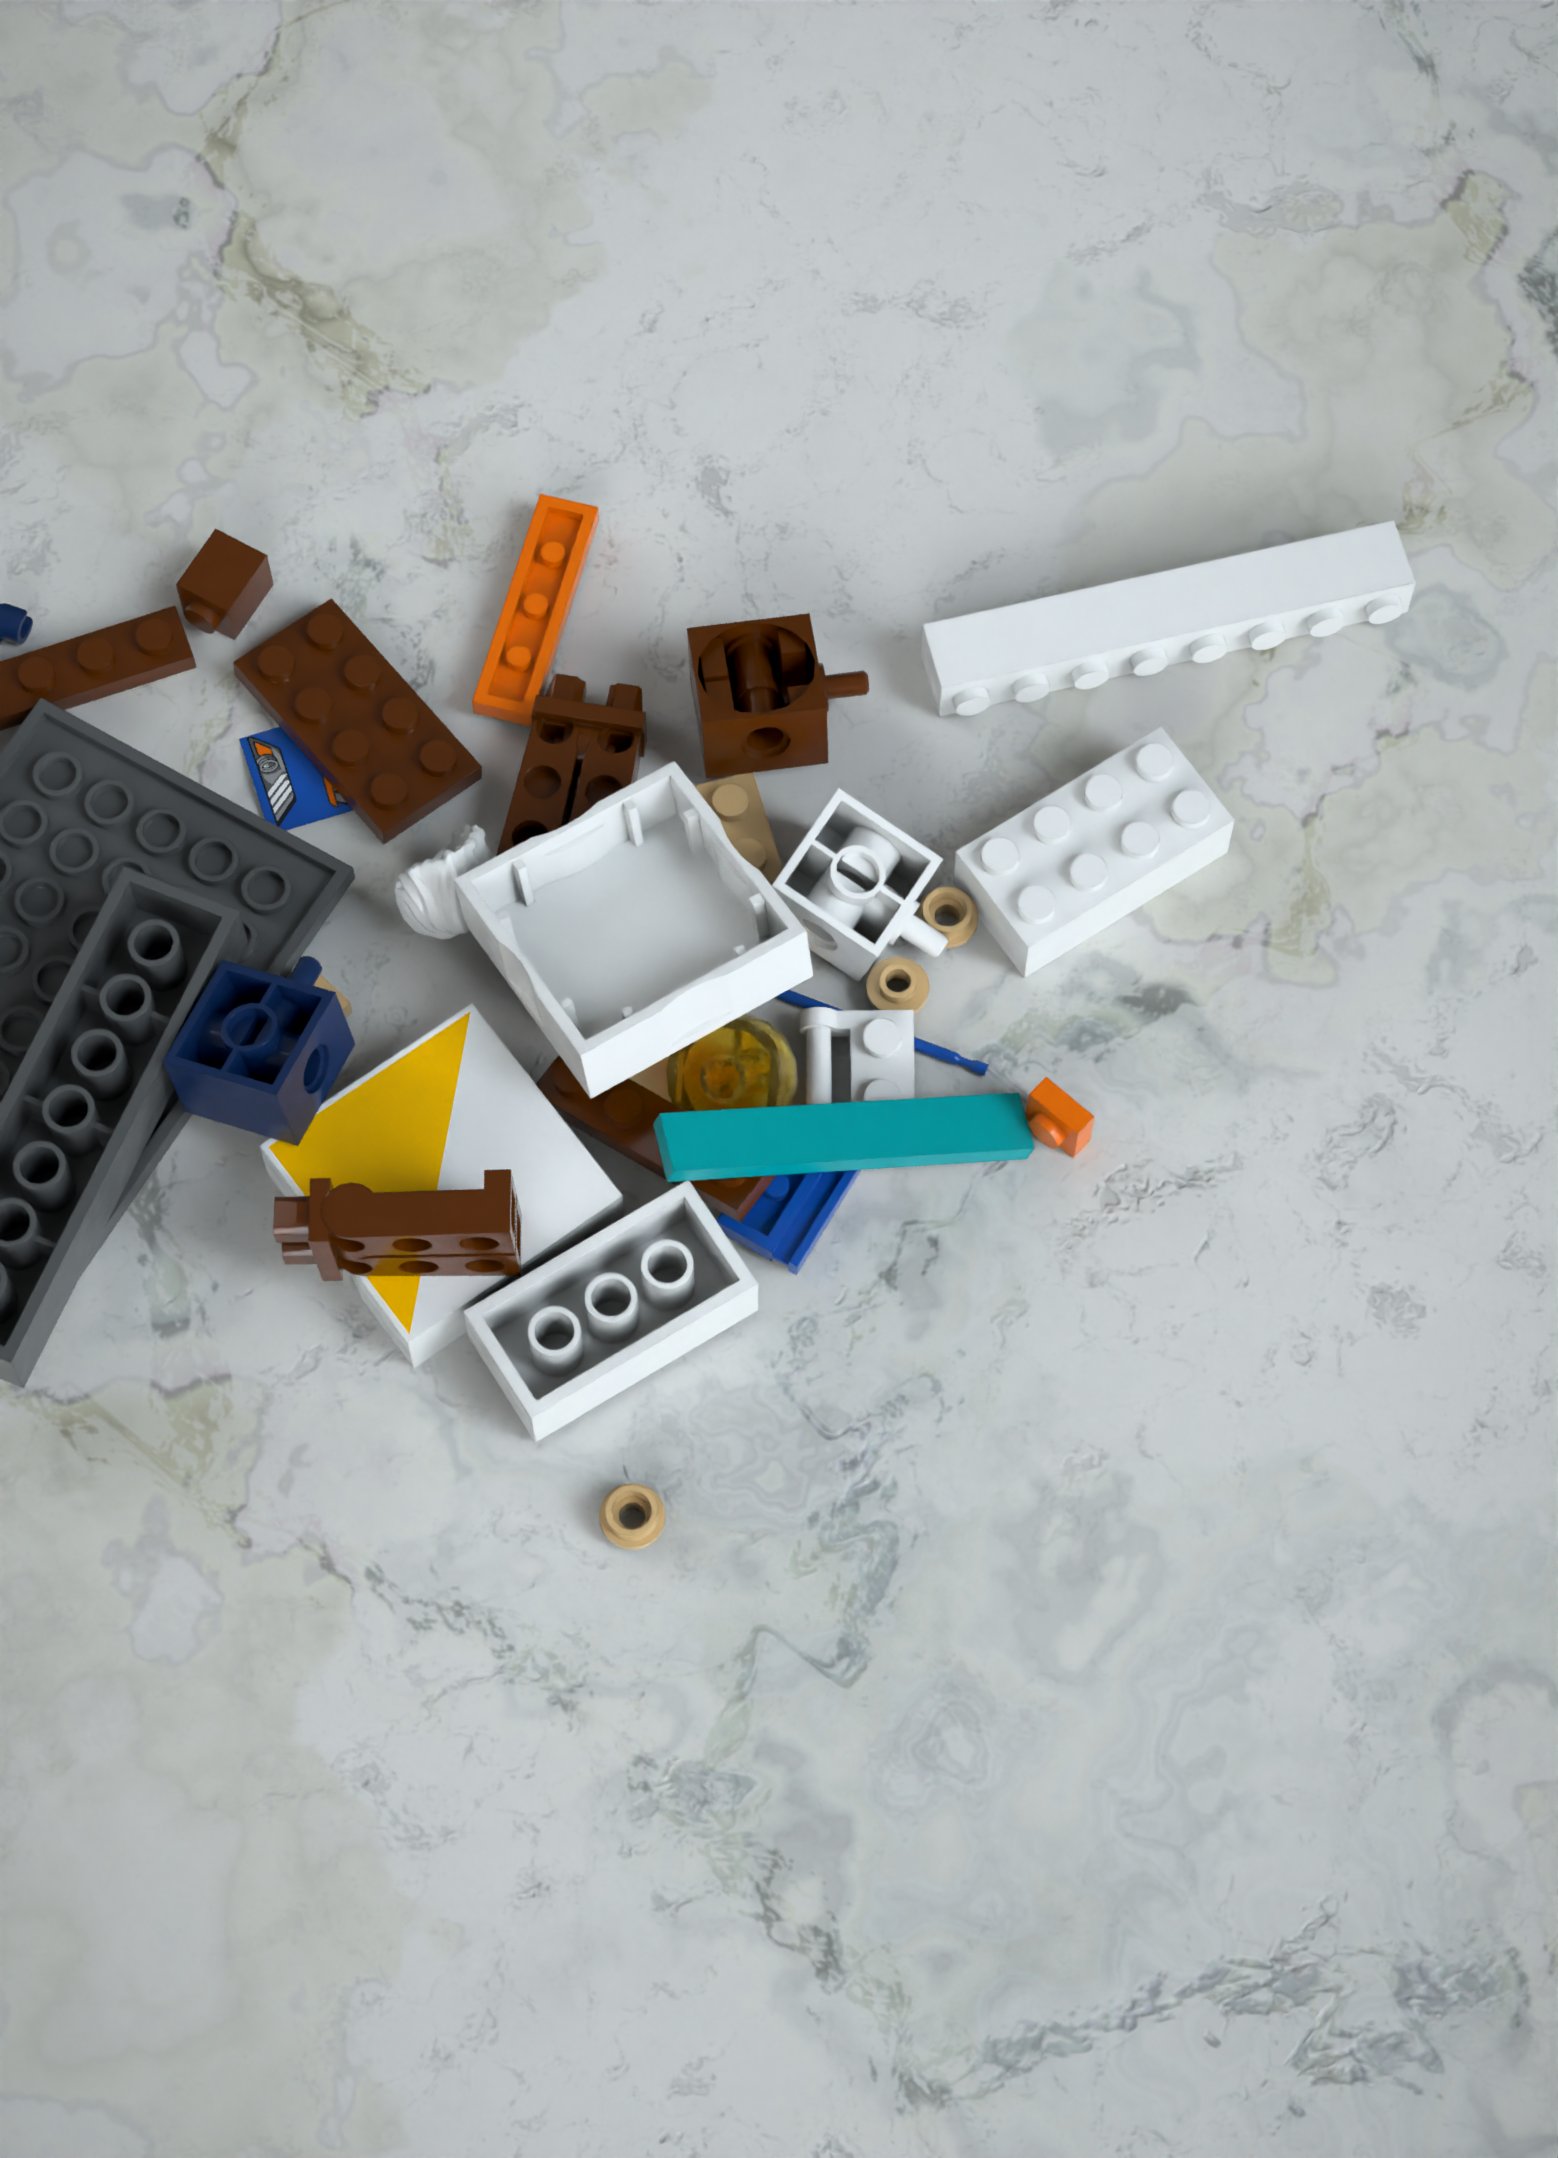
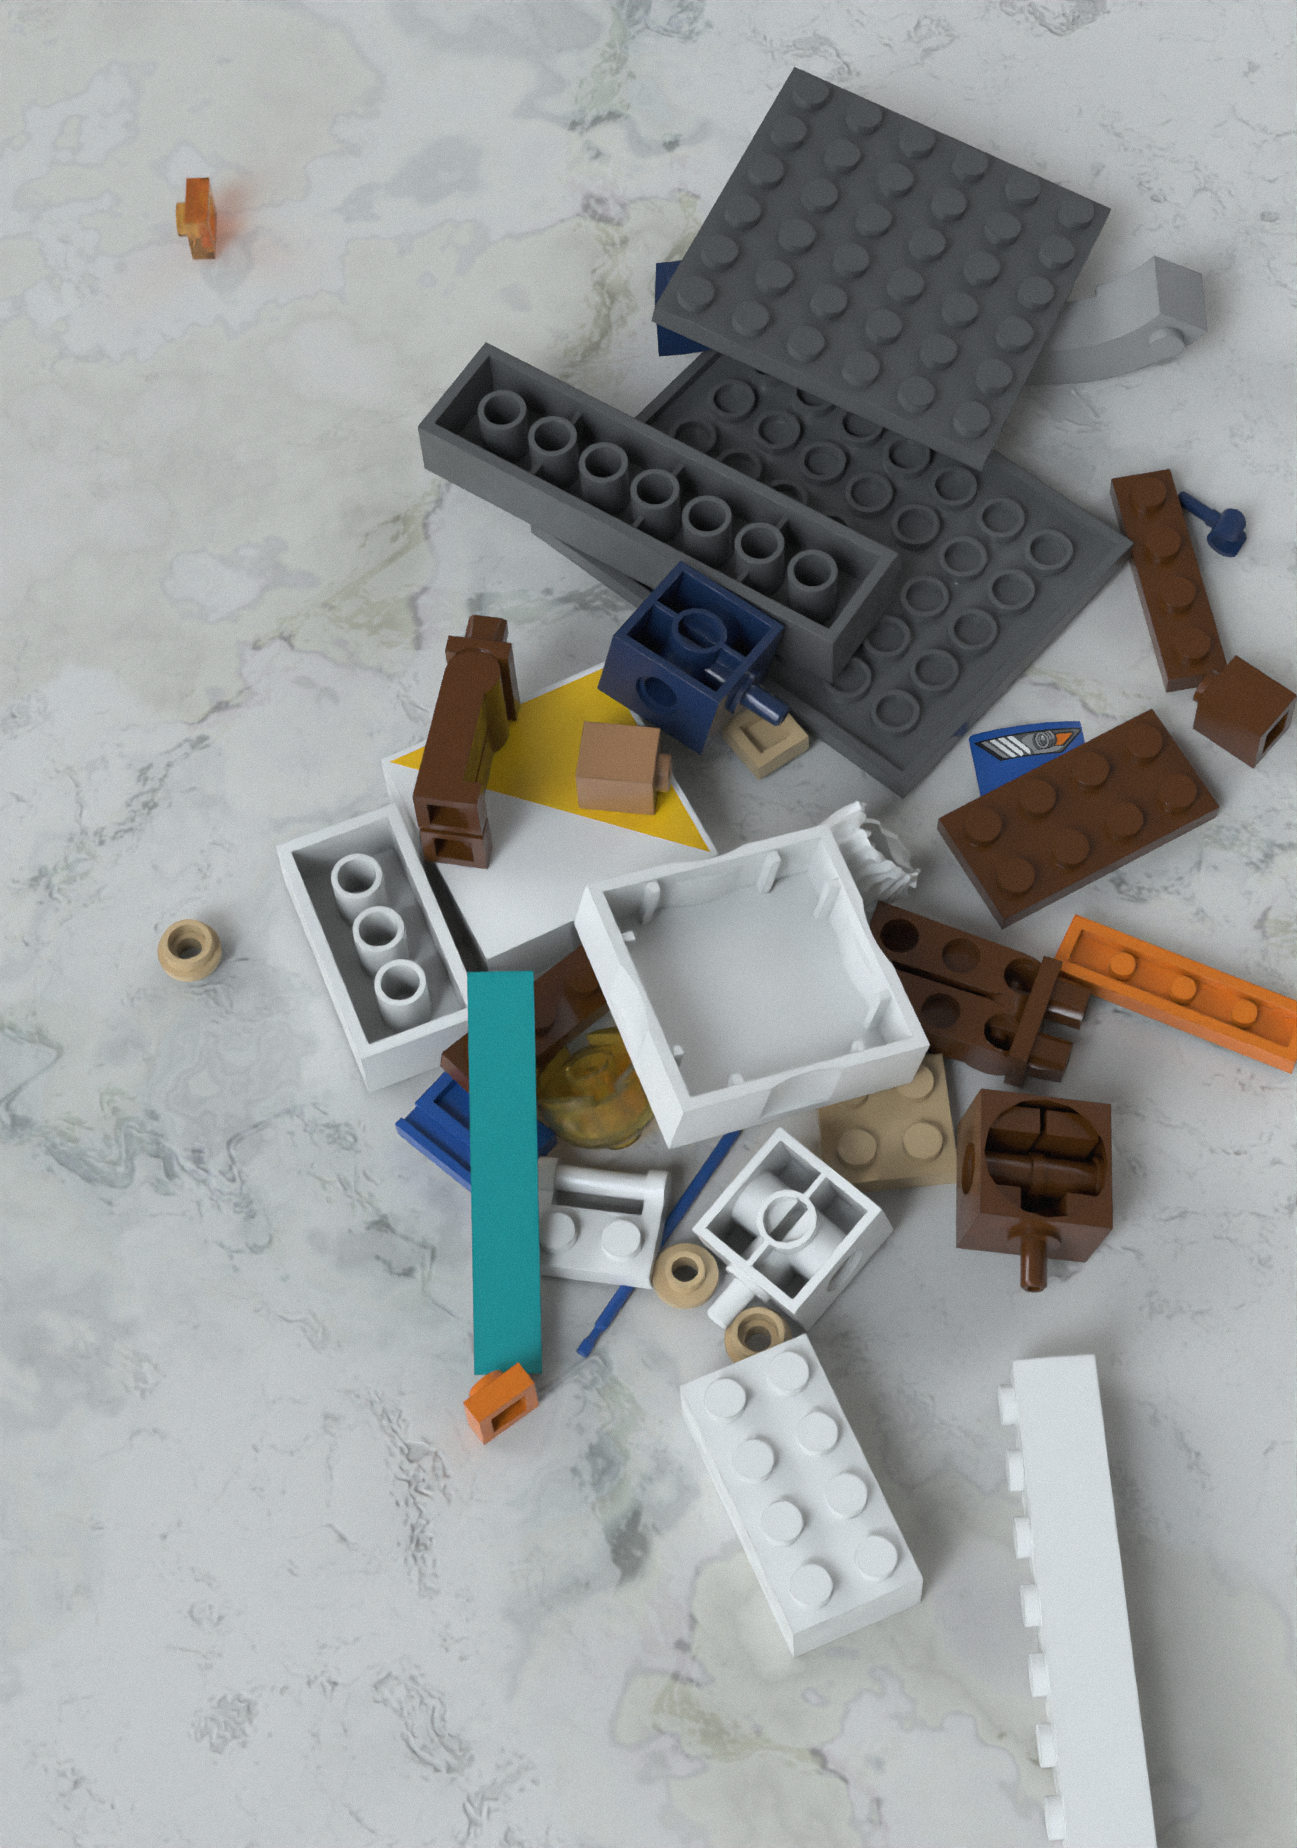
camera: 105 degrees right, 5 degrees down
(402, 1092) = (621, 768): none -> medium nougat brick

